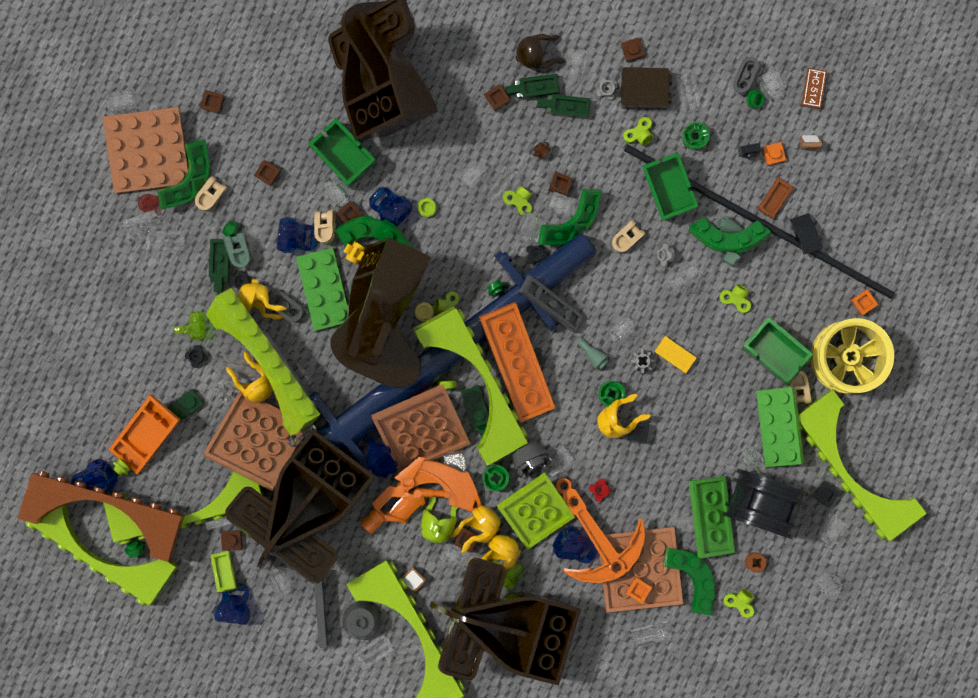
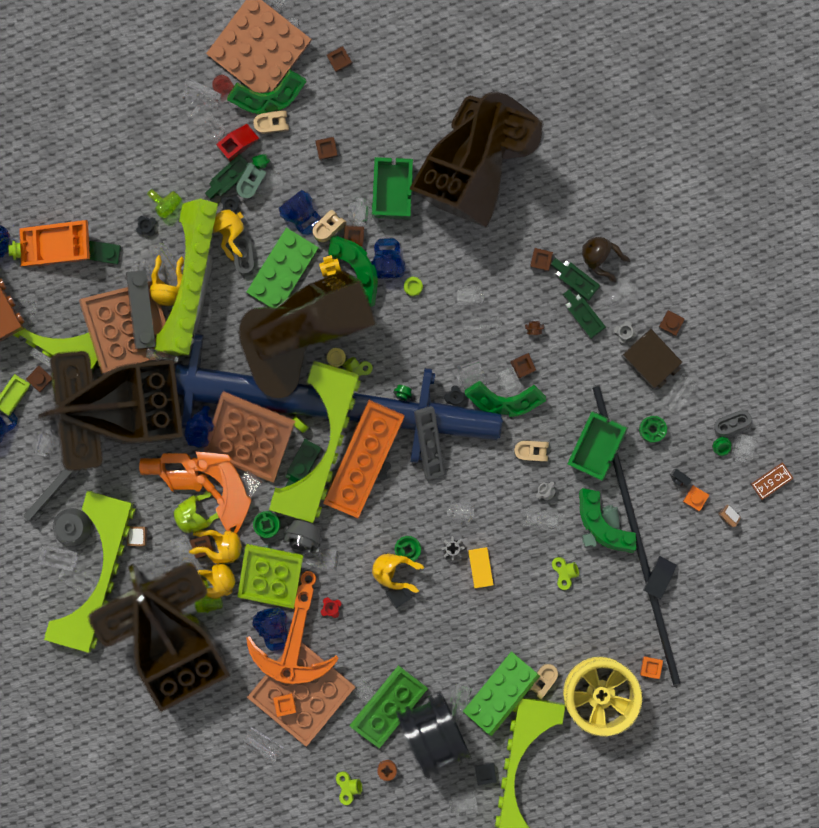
camera: 45 degrees right, 0 degrees up
(200, 232) = (237, 142): none -> red slope
(253, 418) = (140, 309): none -> dark grey plate
(518, 199) = (484, 346): lime piece -> none
(596, 357) = (423, 513): sand green cone -> none
(640, 133) = (616, 387): lime piece -> none
(699, 573) = (339, 738): green plate -> none
(775, 198) = (664, 530): dark orange tile -> none
(778, 351) = (553, 639): green piece -> none

